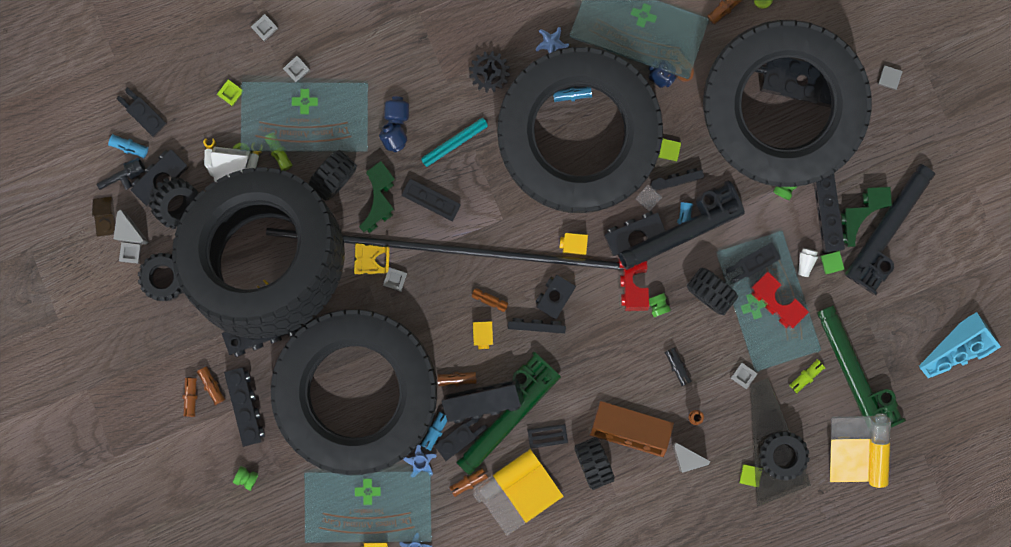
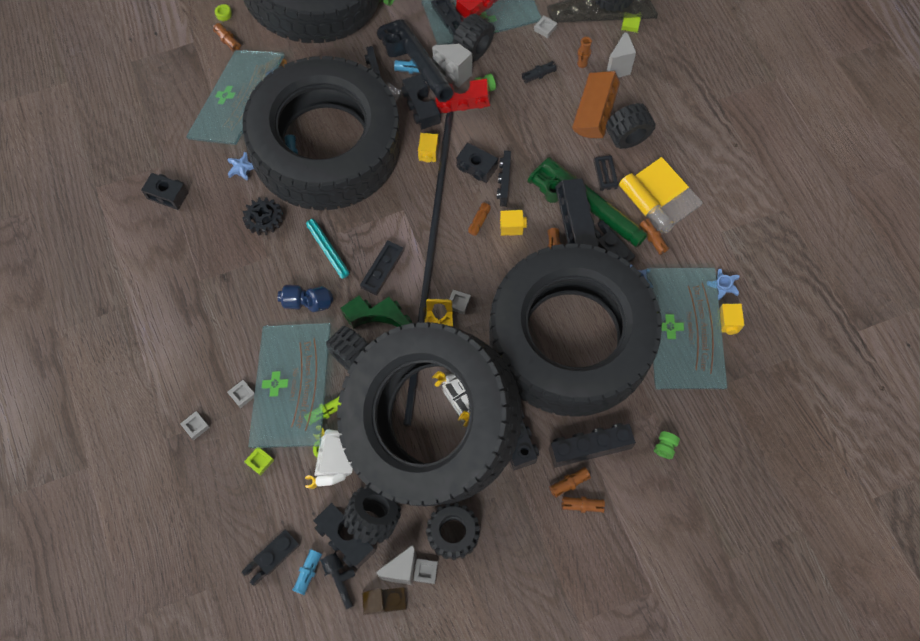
camera: 90 degrees left, 20 degrees down
(681, 269) = (453, 62): none -> light grey slope

